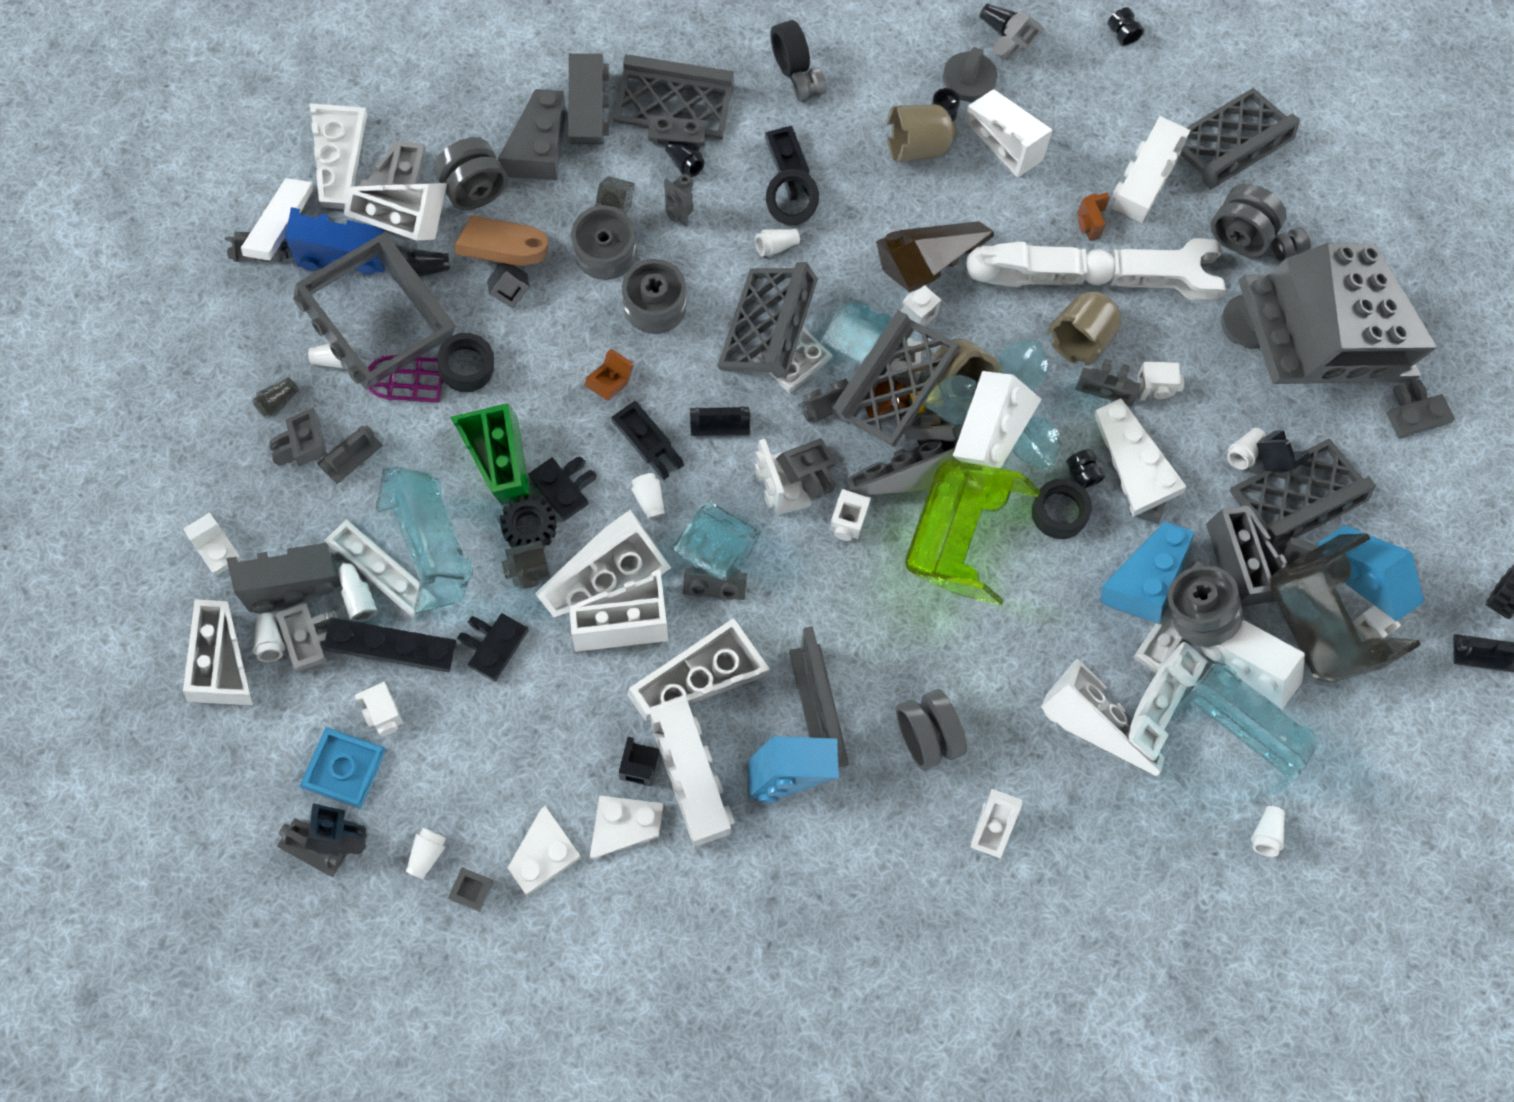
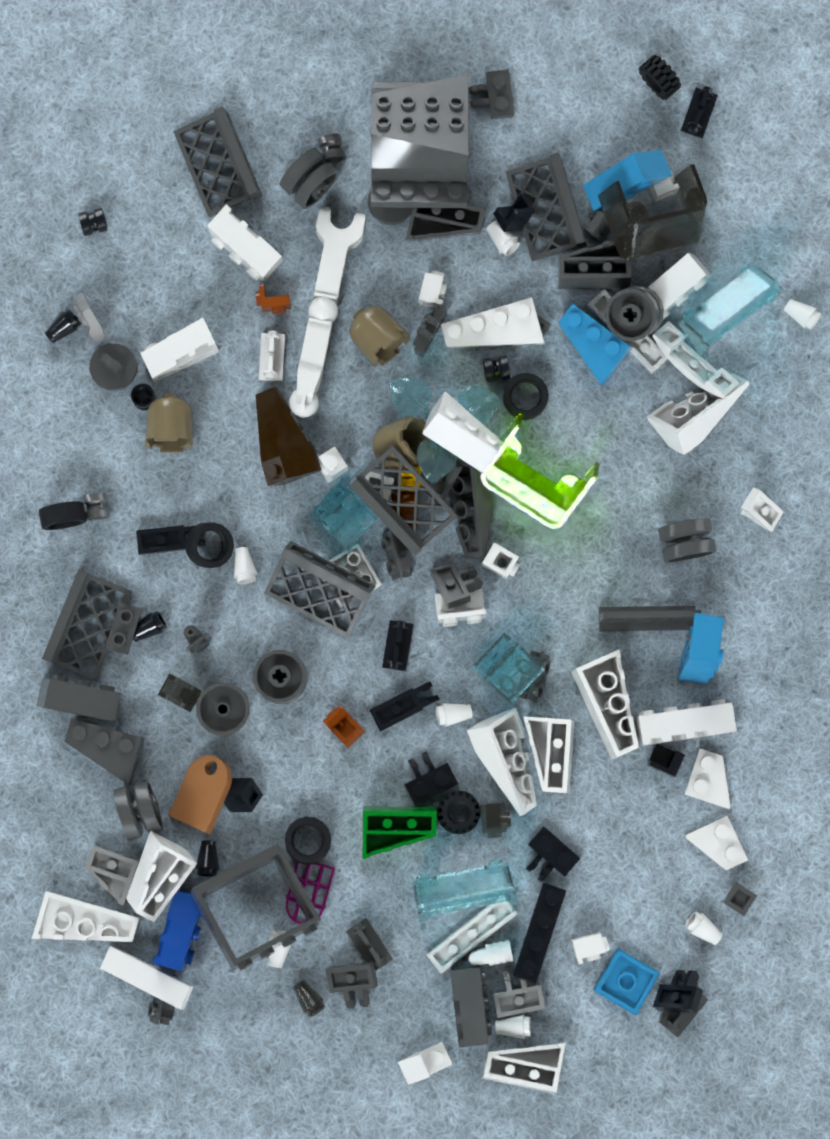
camera: 75 degrees left, 15 degrees up
(1029, 228) = (271, 356): none -> white hinge
(1245, 376) = (444, 222): none -> dark grey wedge

